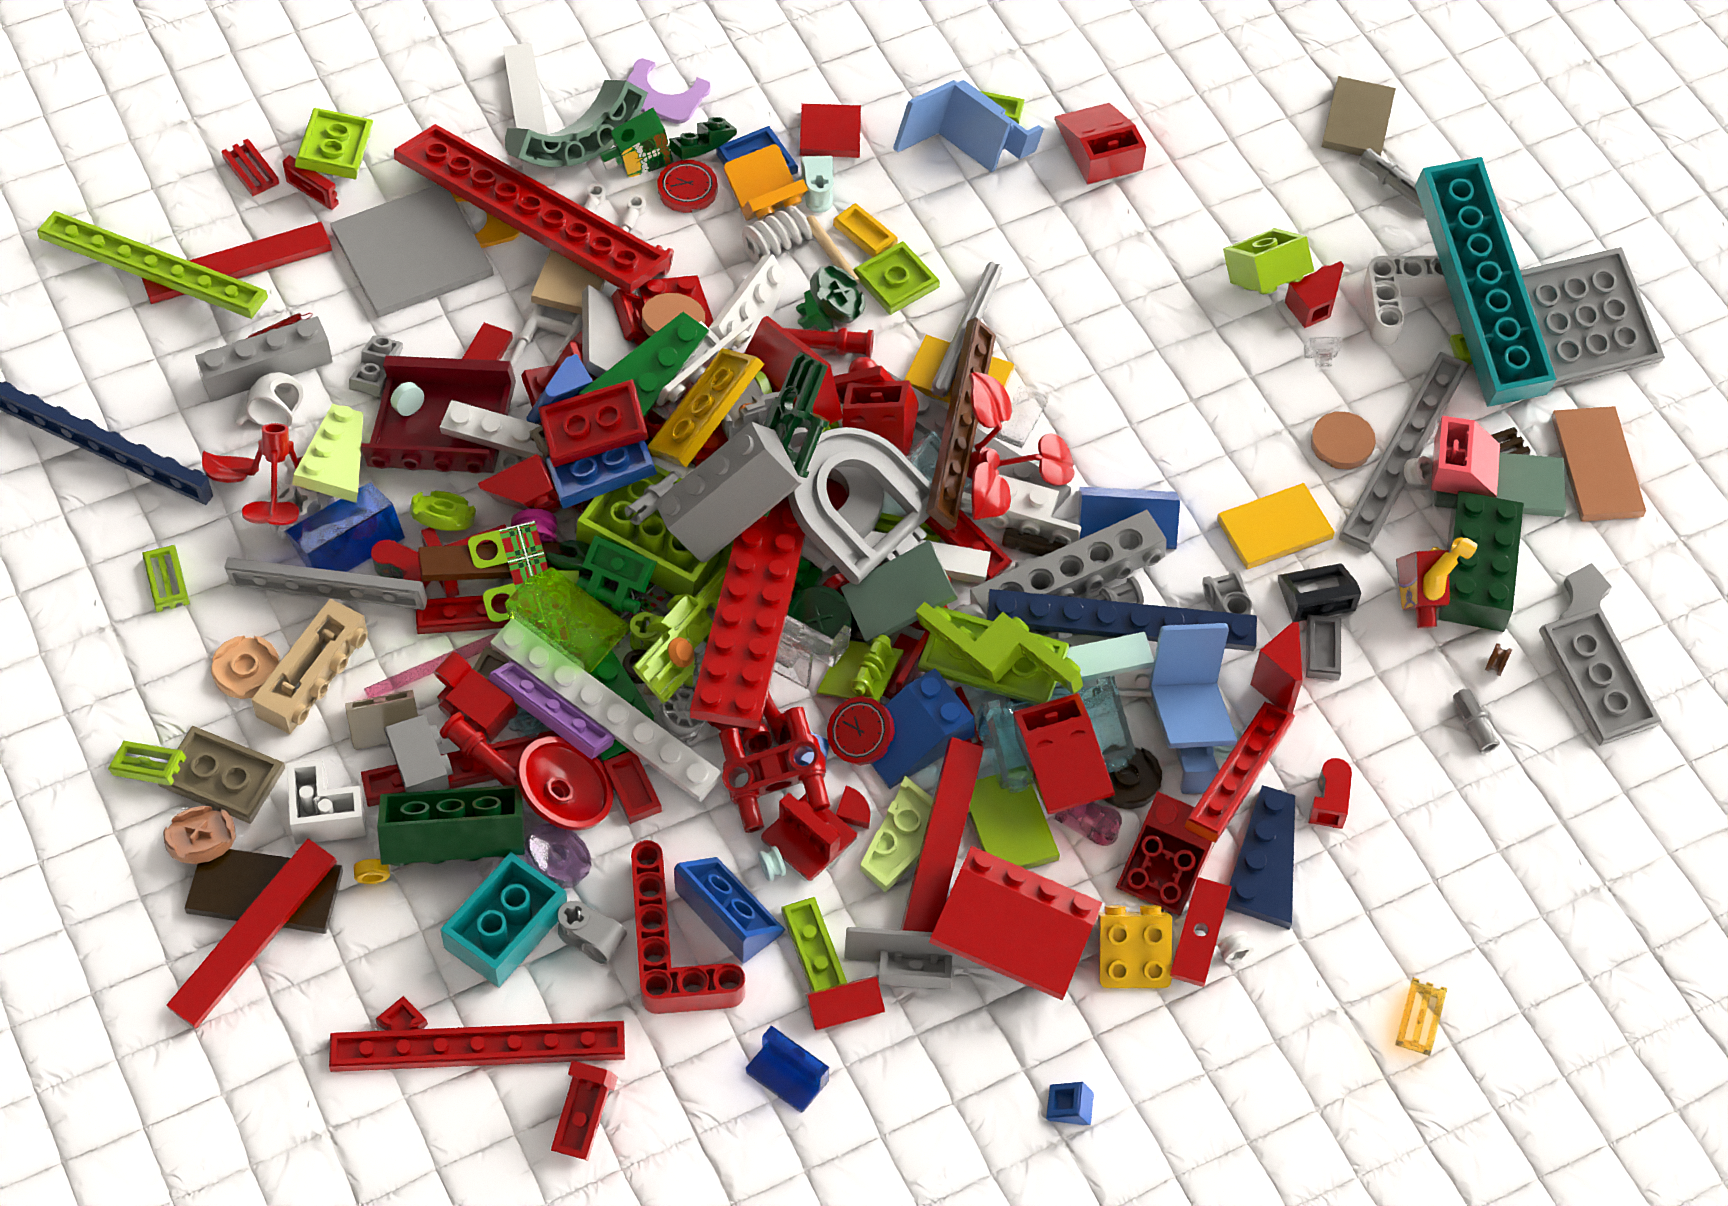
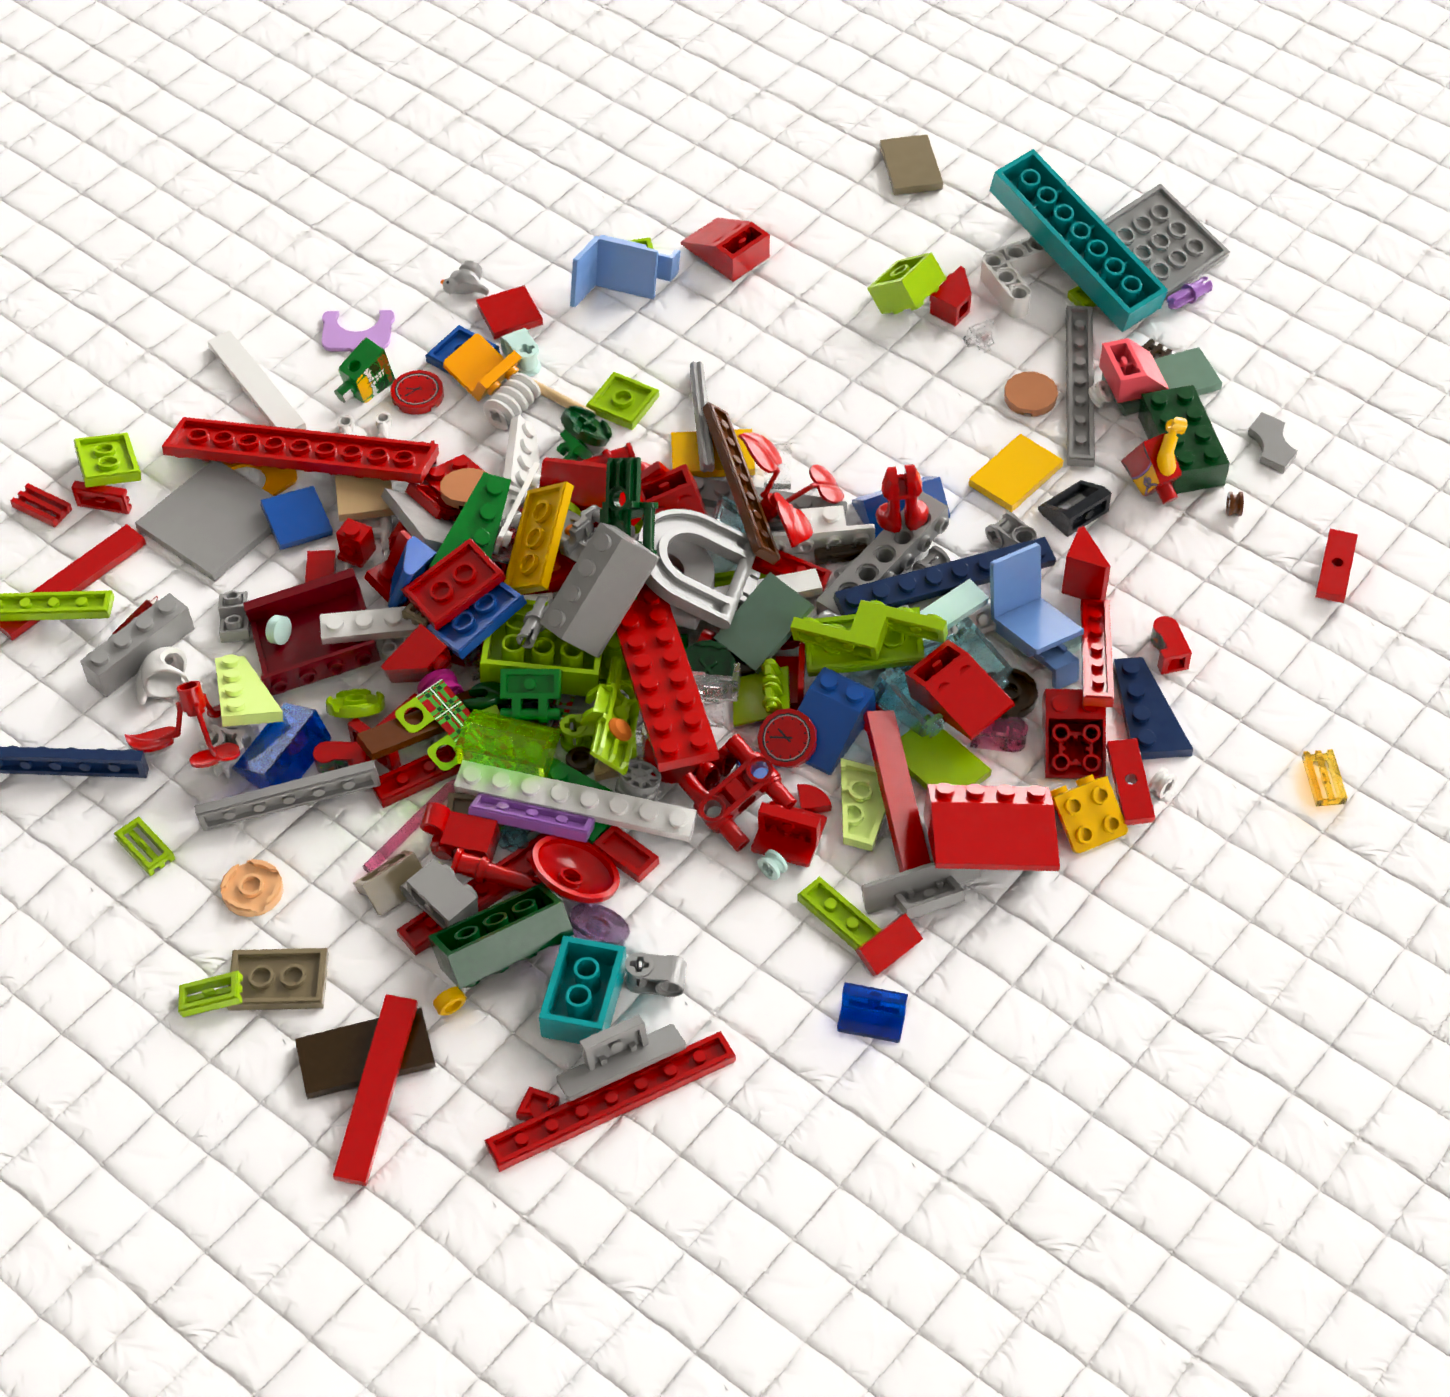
camera: 20 degrees left, 5 degrees down
(199, 835) = (287, 1031): nougat tile -> none
(310, 666) = (295, 901): tan brick -> none
(320, 811) = (382, 970): white brick -> none
(490, 280) = (296, 517): none -> blue tile
(503, 1001) = (617, 1054): none -> light grey bracket
(531, 333) = (355, 543): none -> red brick
(582, 1109) = (728, 1109): red bracket -> none
(584, 138) = (317, 380): sand green brick -> none
(657, 942) = (717, 959): red beam -> none
(709, 137) = (414, 351): dark green slope -> none
(726, 906) = (753, 913): blue slope -> none
(801, 76) = (465, 280): none -> light grey animal
(864, 230) = (578, 375): yellow tile -> none
(1070, 1103) = (1102, 948): blue slope -> none
(1114, 502) = (898, 487): none -> red piece
(1323, 647) = (1106, 542): flat silver tile -> none
(1390, 174) = (966, 197): light grey pin -> none
(1476, 721) = (1243, 553): light grey axle -> none
(1582, 766) = (1336, 565): none -> red tile
(1588, 390) = (1189, 293): none -> medium lavender axle
(1598, 464) = (1225, 342): nougat tile -> none
(1600, 676) = (1313, 487): light grey tile -> none

